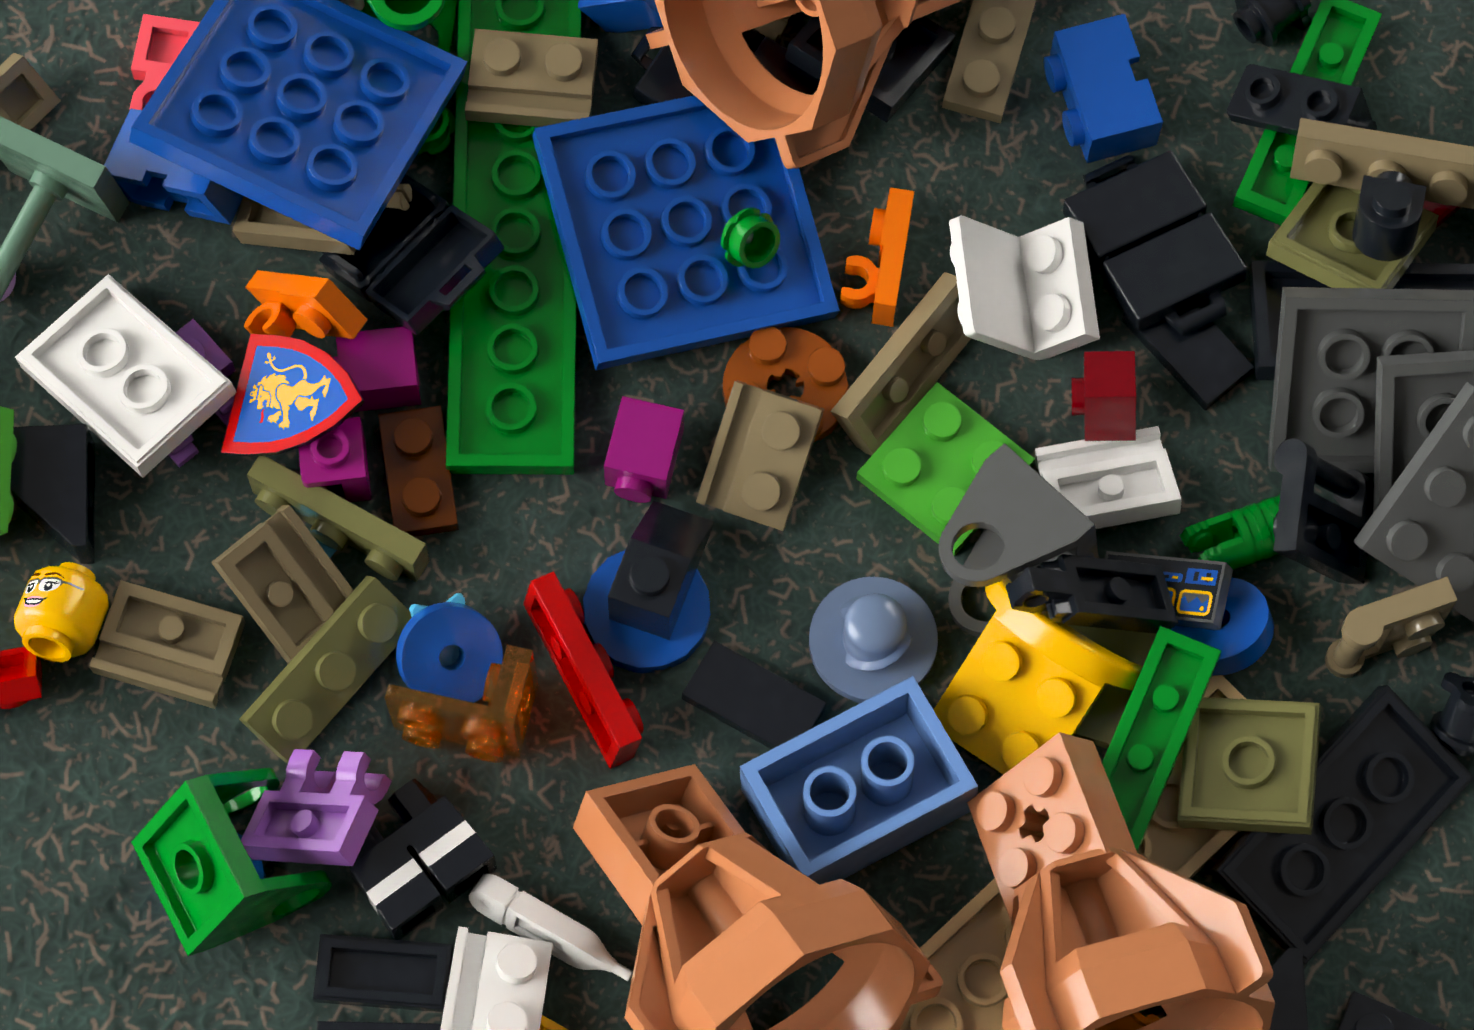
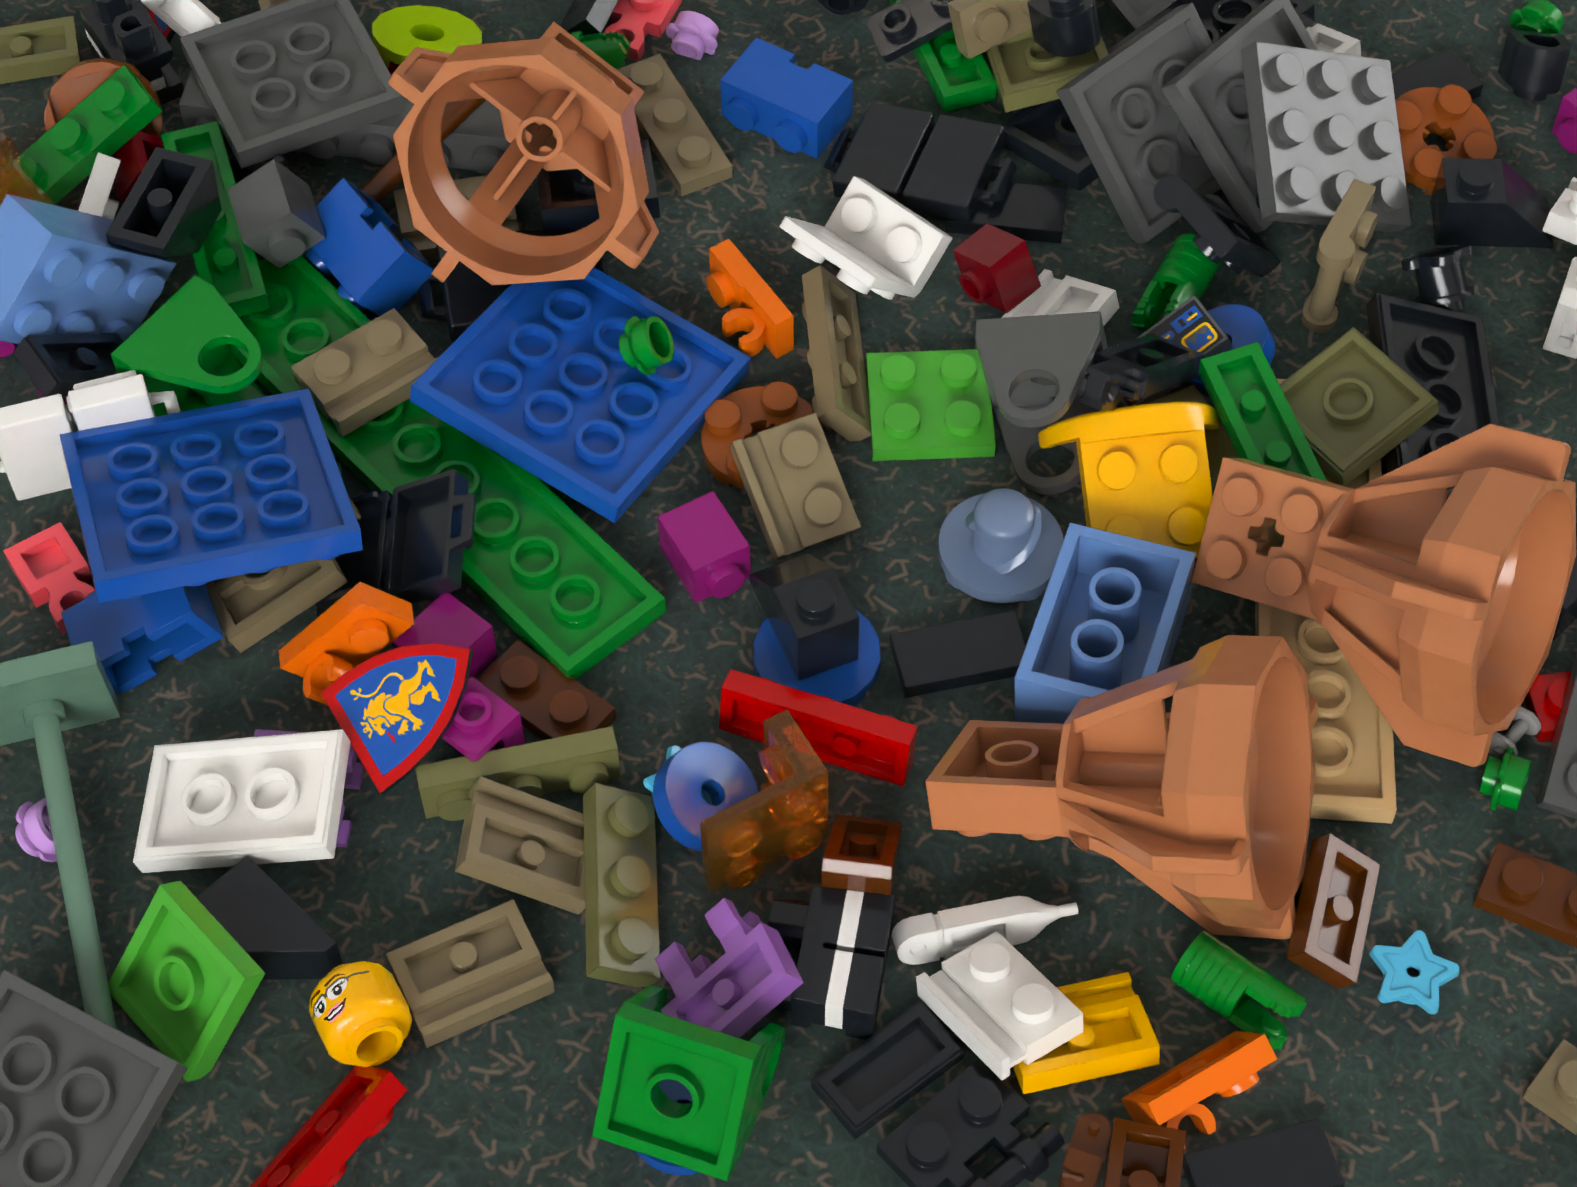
camera: 40 degrees left, 15 degrees down
(510, 800) = (861, 854): none -> reddish brown slope

